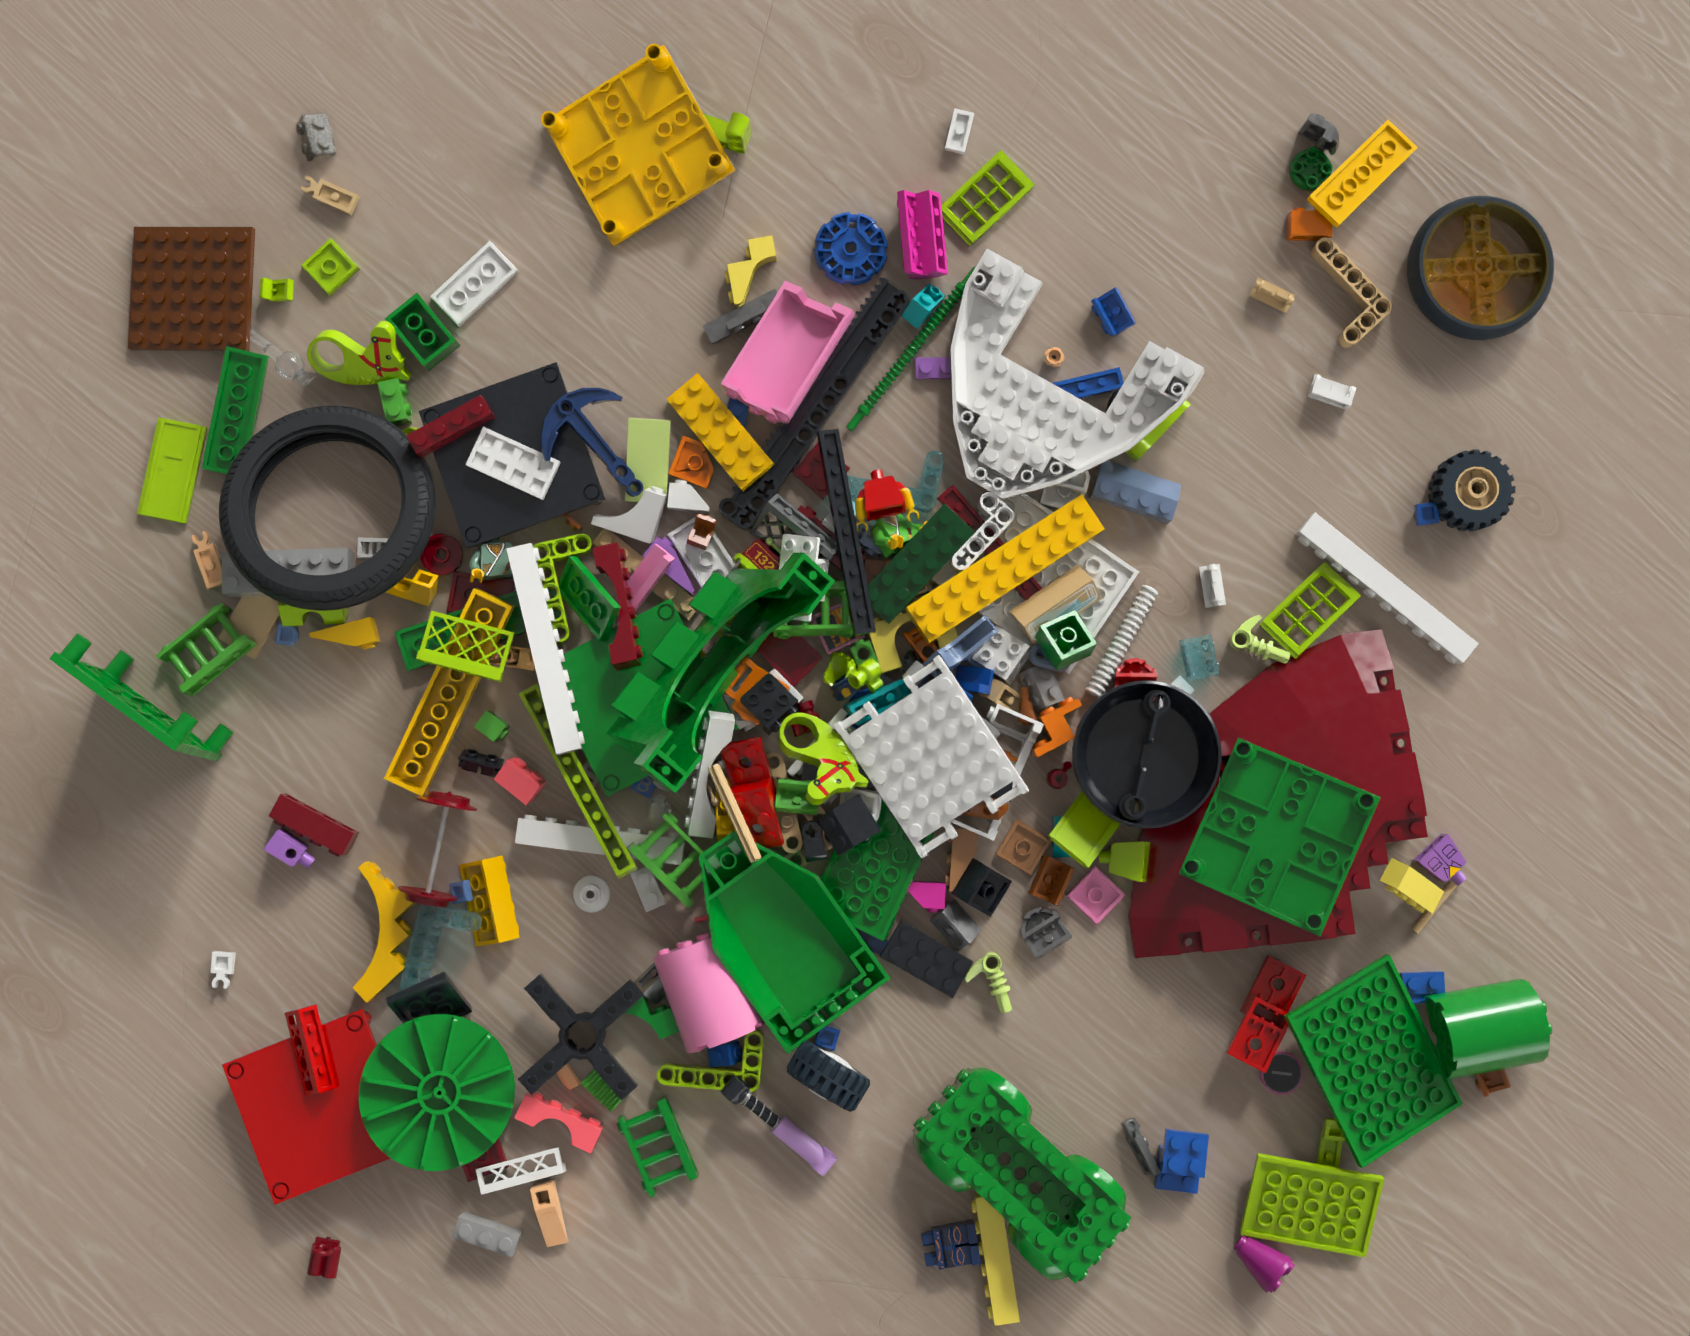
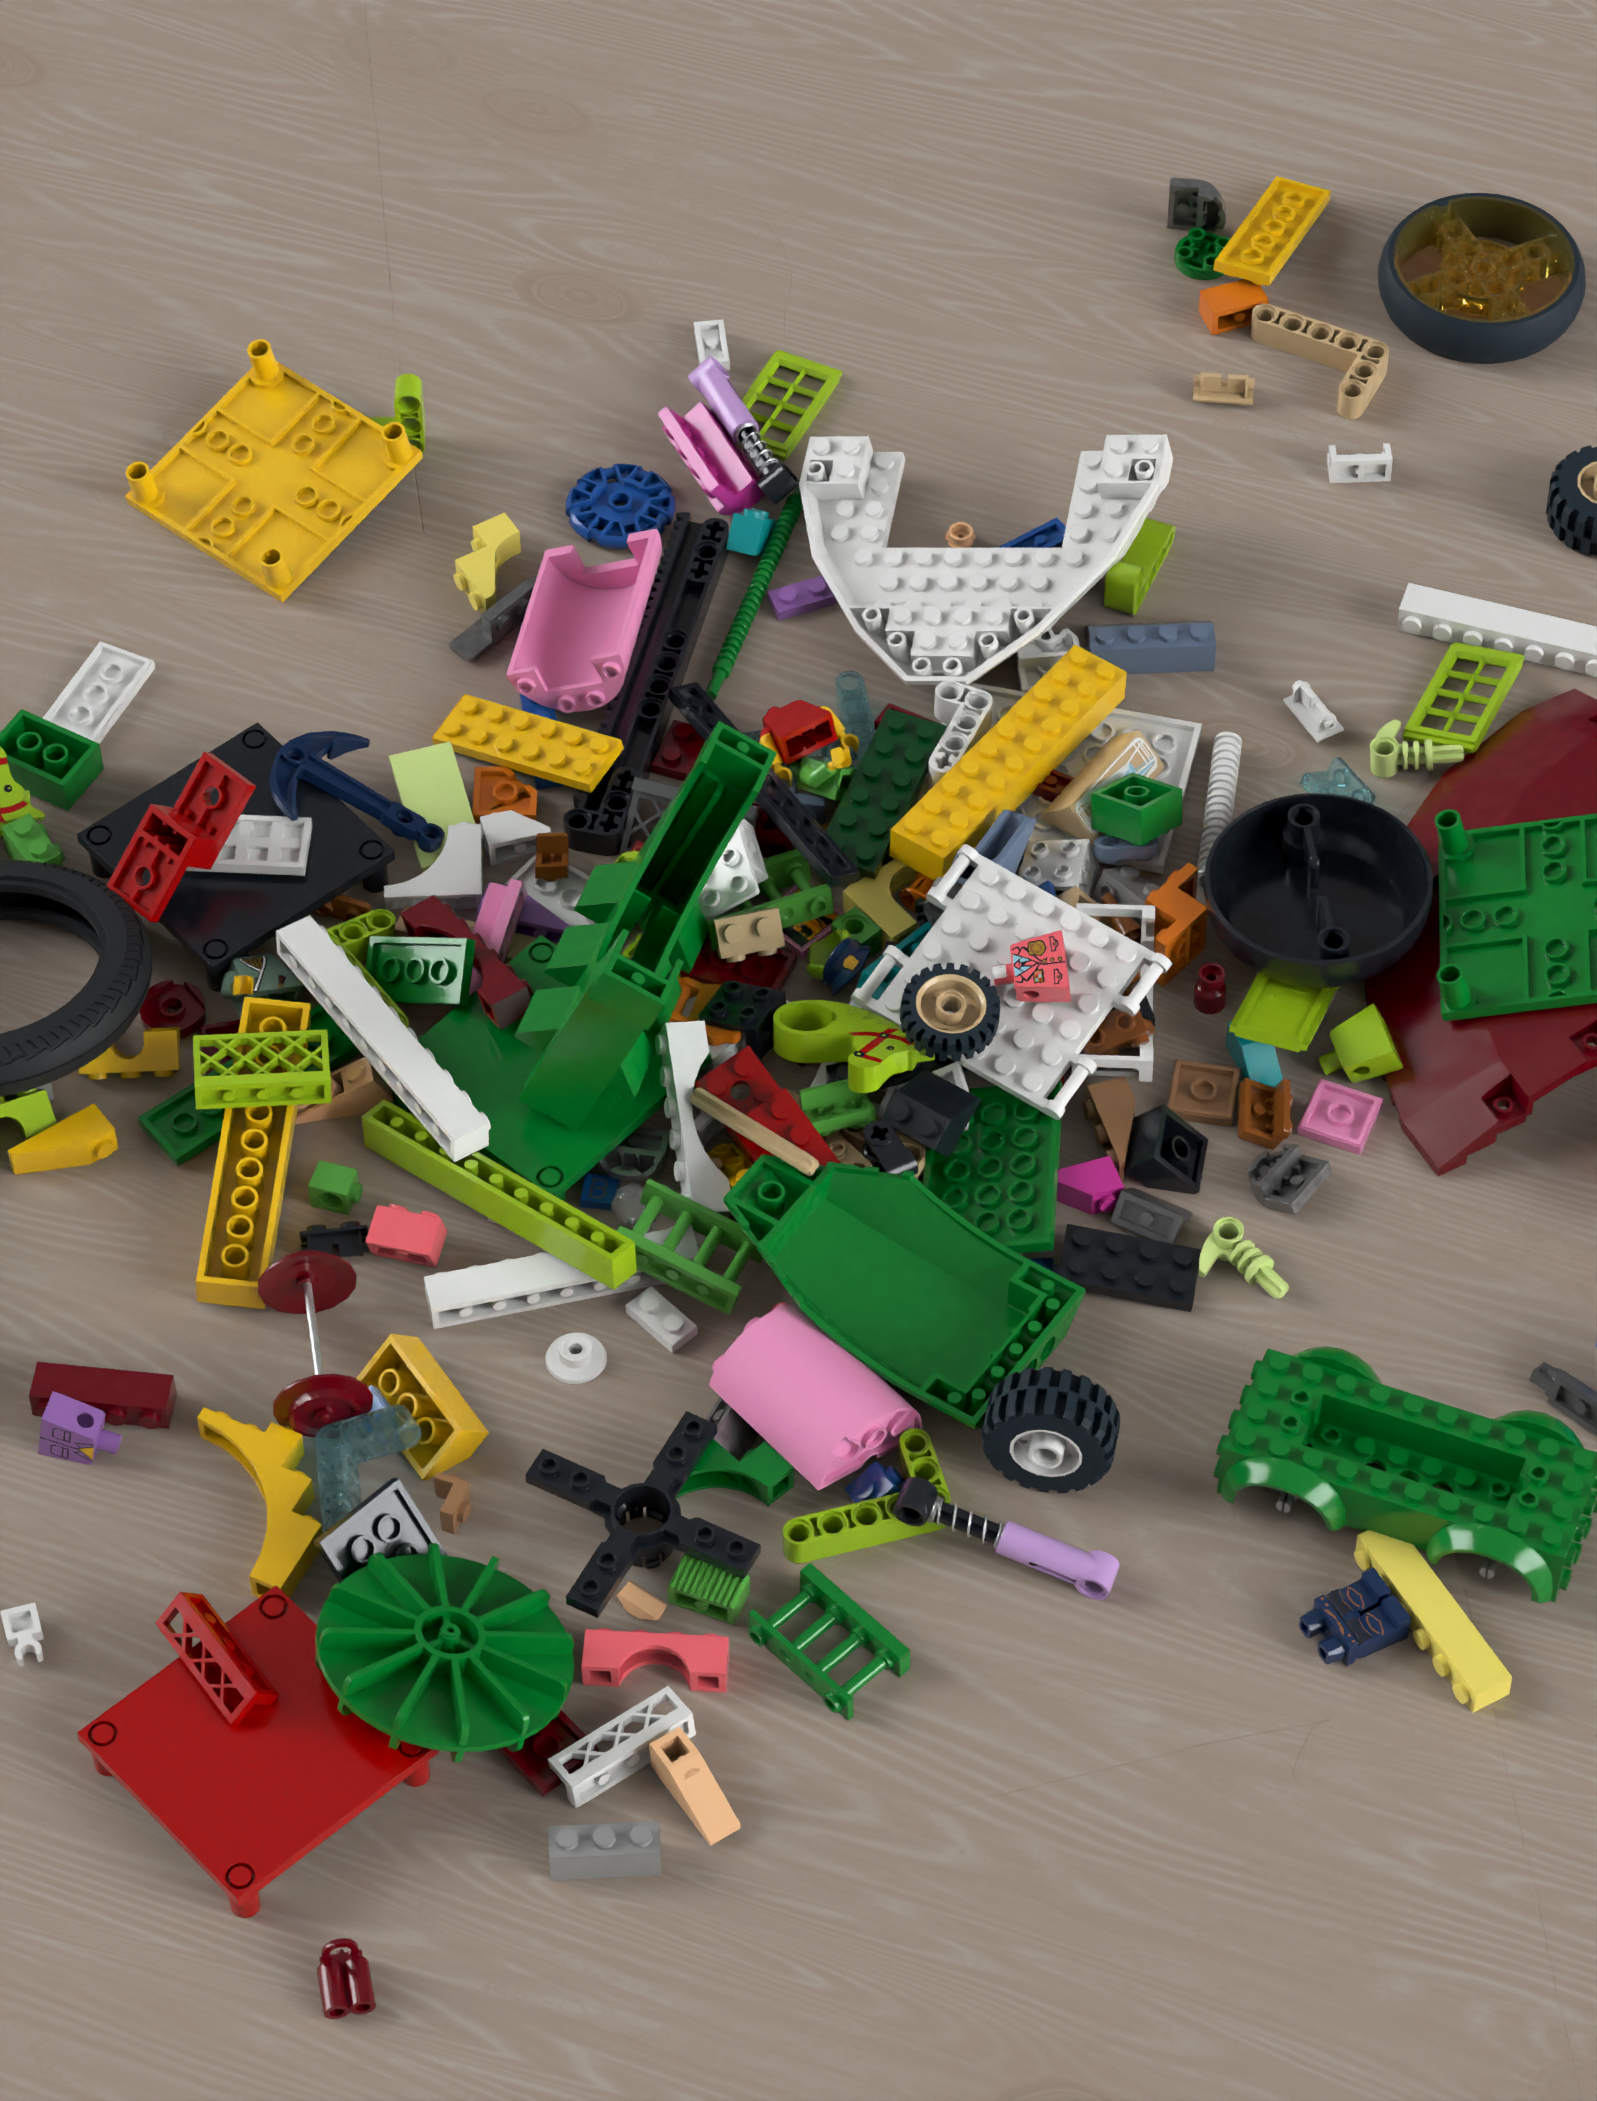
camera: 20 degrees left, 35 degrees down
(450, 426) = (106, 843): dark red brick -> none
(469, 459) = (180, 836): none -> red bracket
(486, 978) = (457, 1501): none -> medium nougat bracket
(794, 644) = (748, 933): none -> tan bracket
(868, 674) = (870, 931): lime piece -> none
(884, 792) = (943, 990): none -> wheel
(944, 171) = (713, 383): none -> piece
(944, 769) = (1037, 969): none -> coral torso
(1113, 312) = (1018, 465): blue bracket -> none
(1426, 514) = (1561, 546): blue tile -> none

